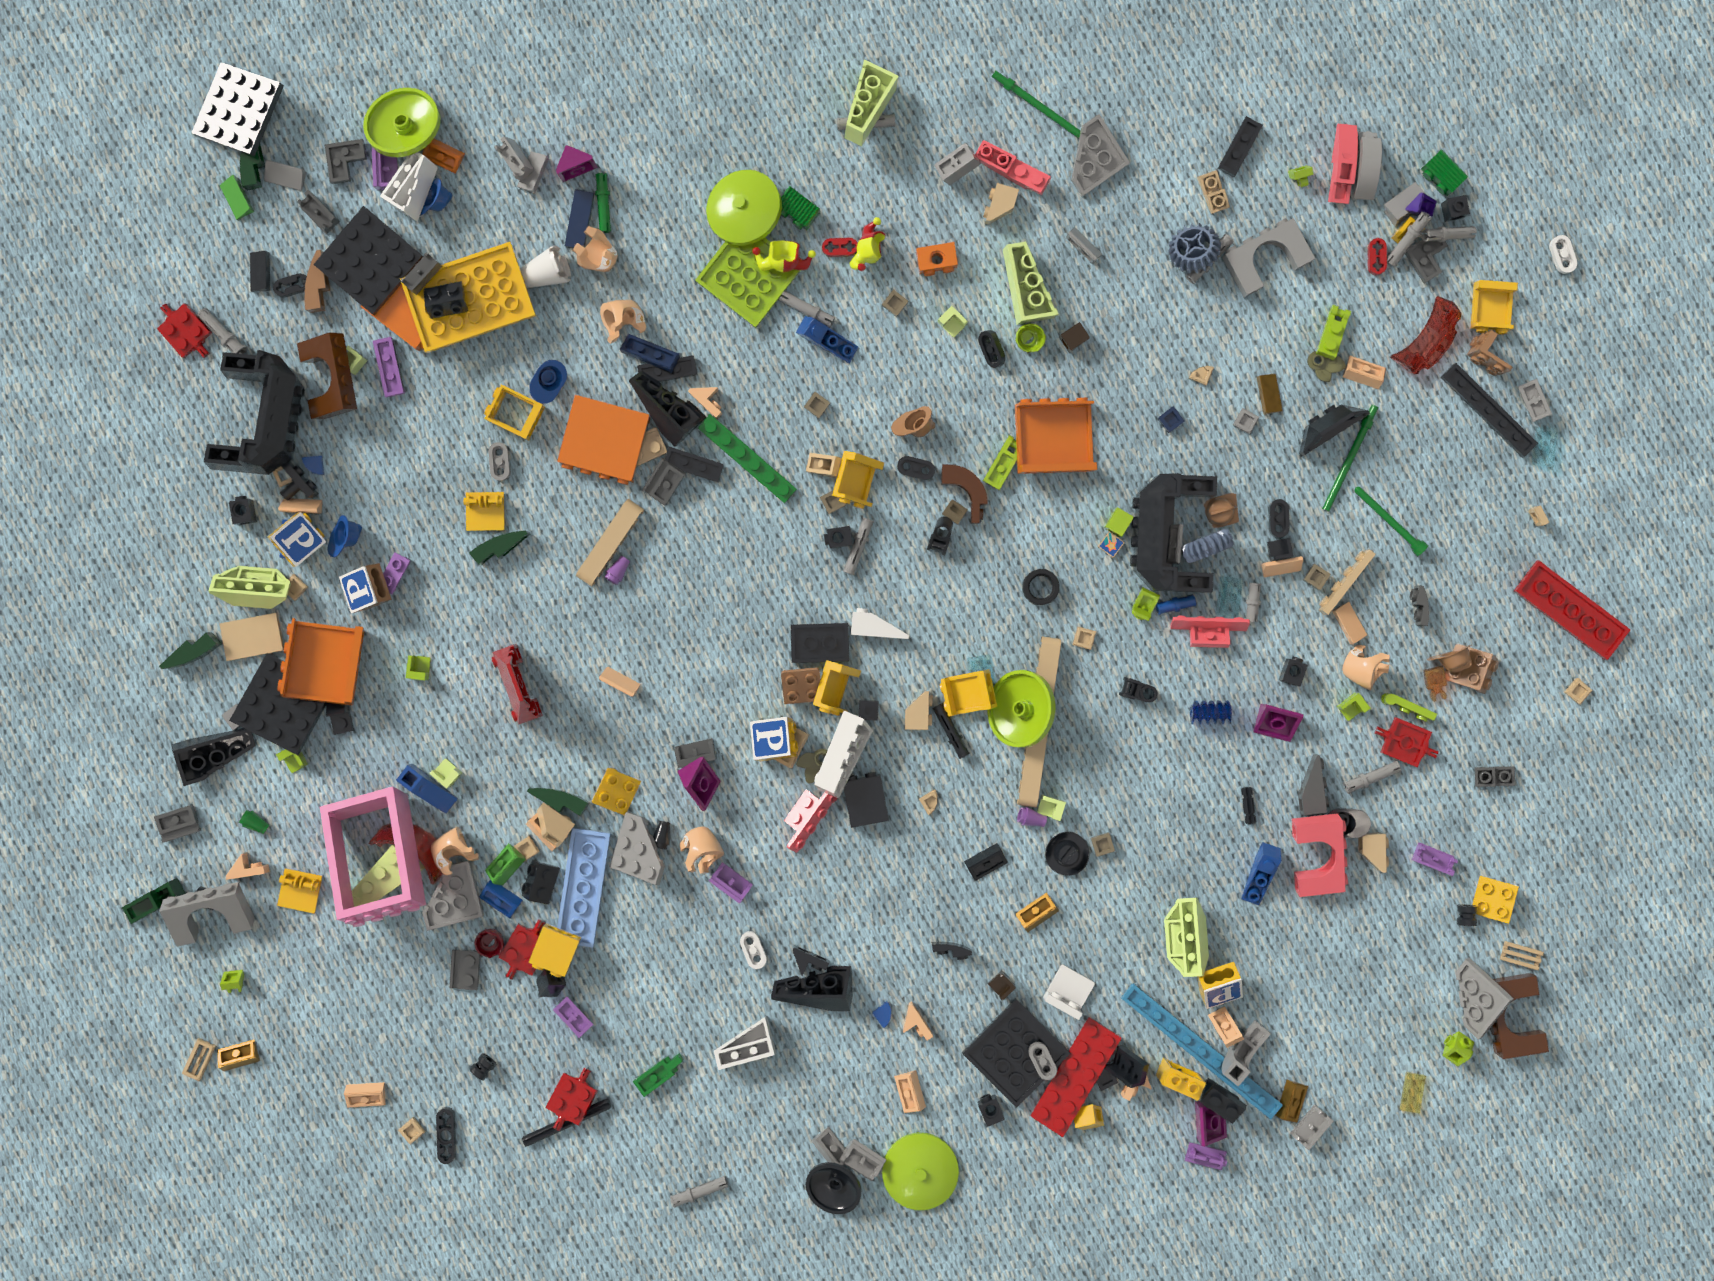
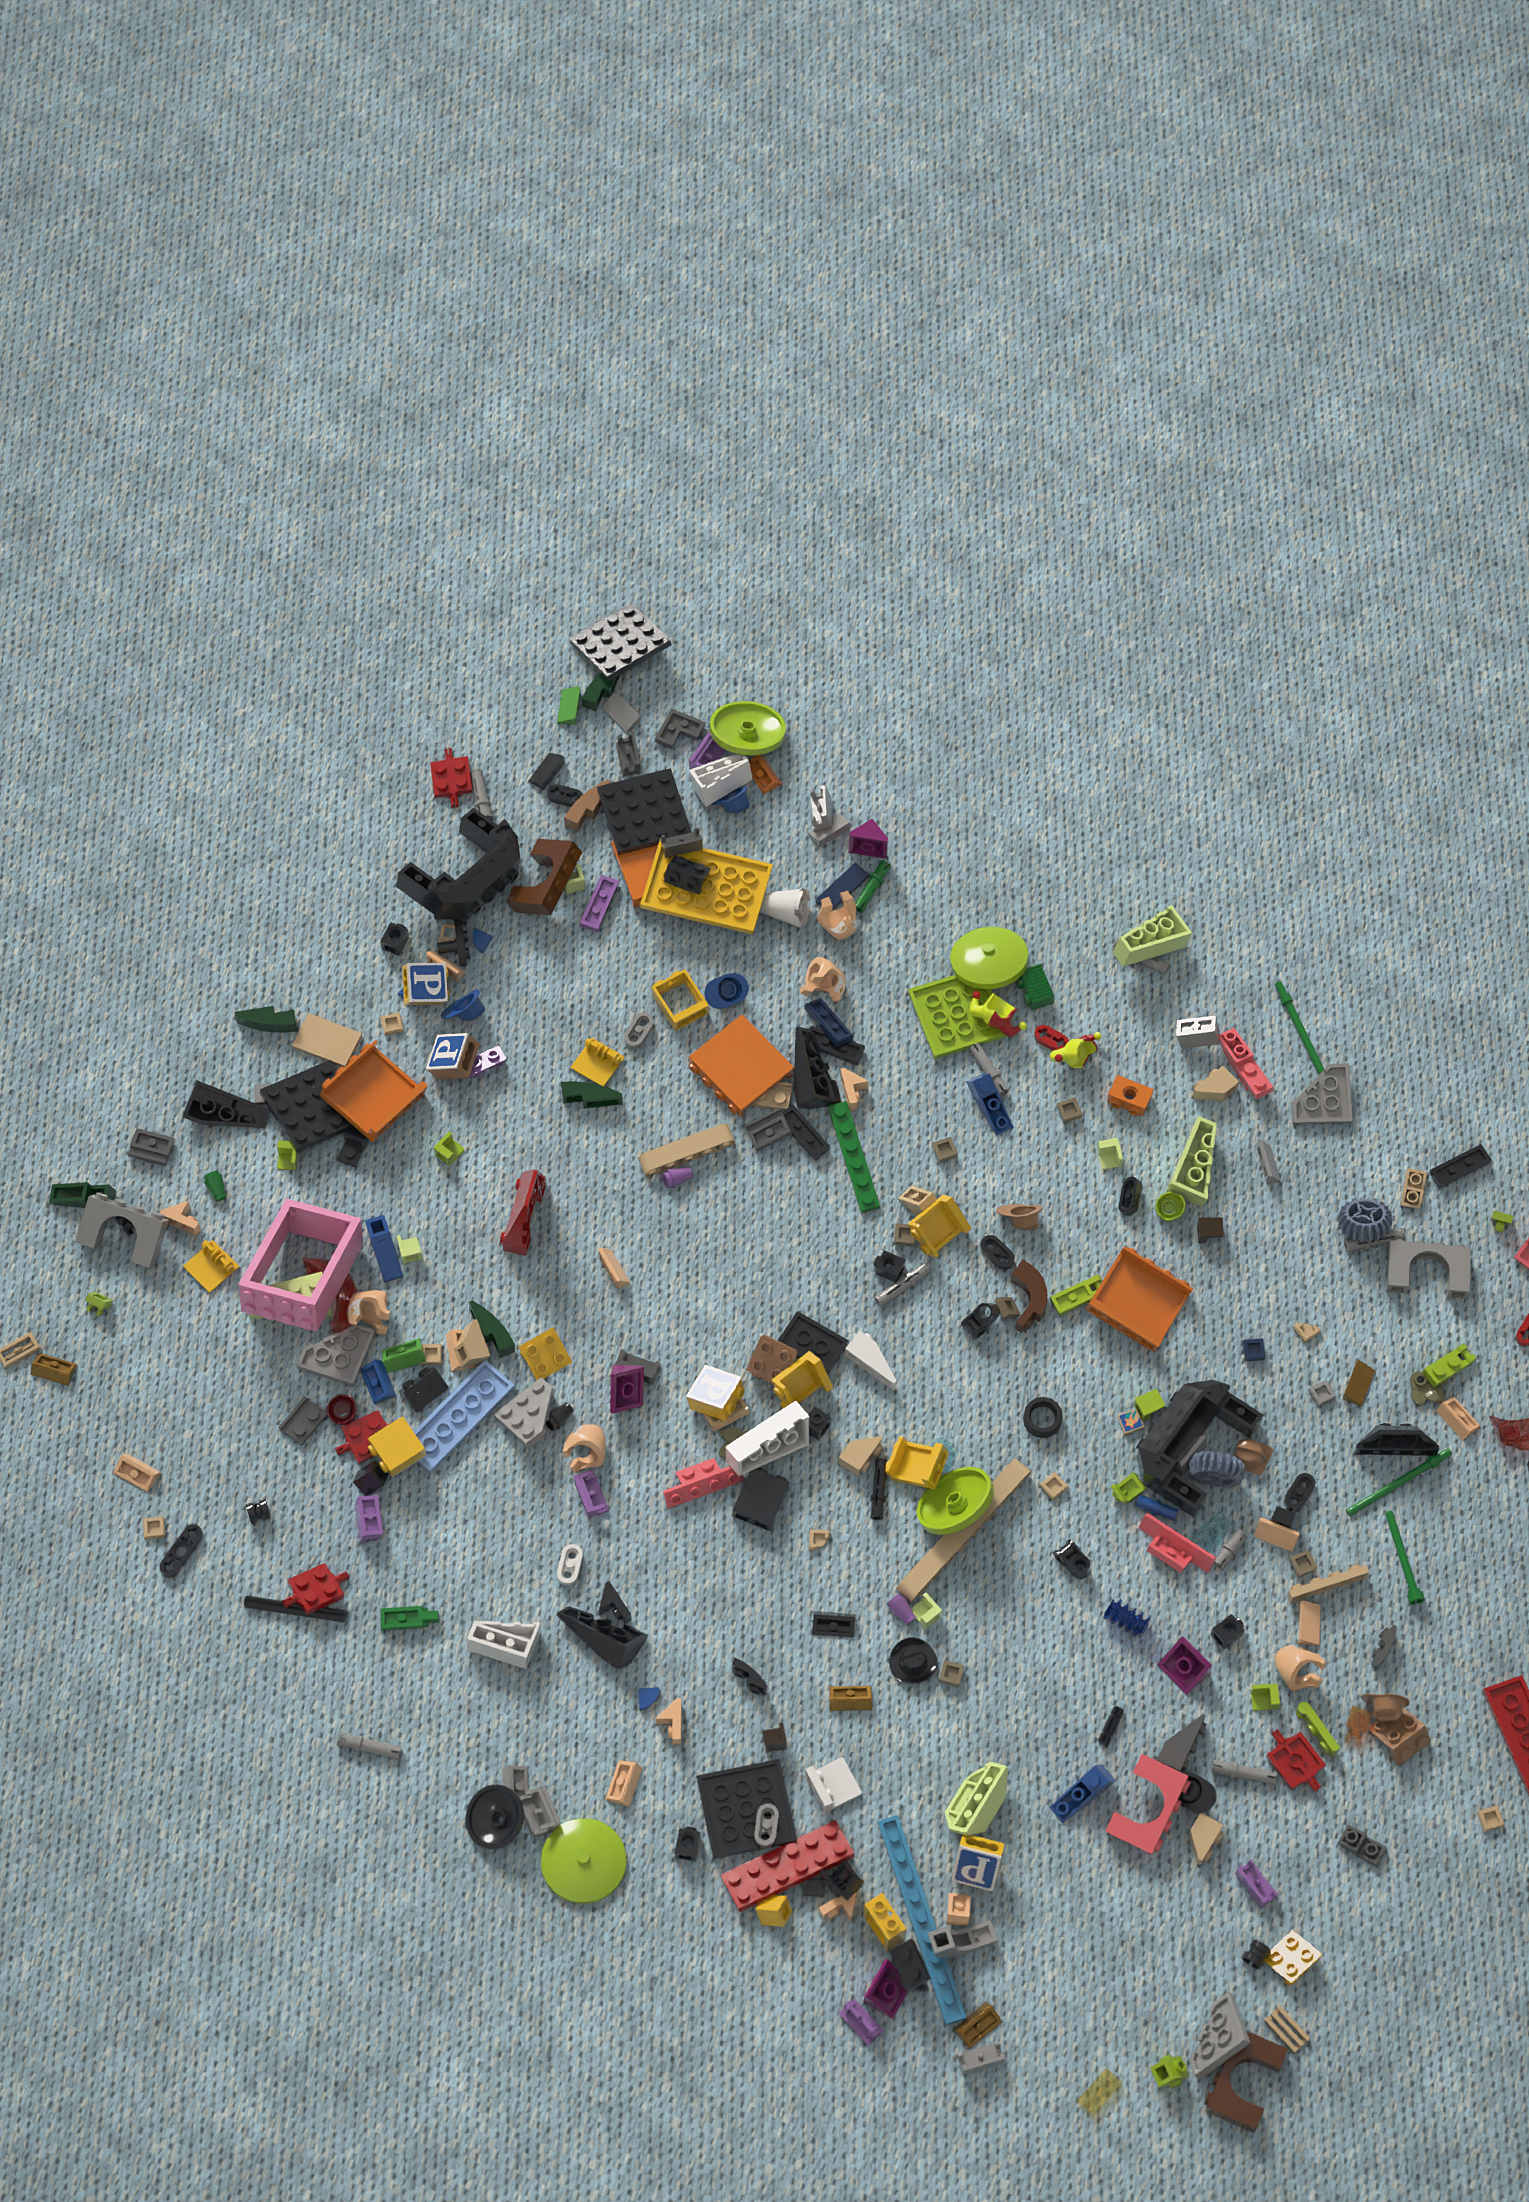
camera: 30 degrees right, 25 degrees down
(250, 587) = (356, 999): yellowish green wedge -> none

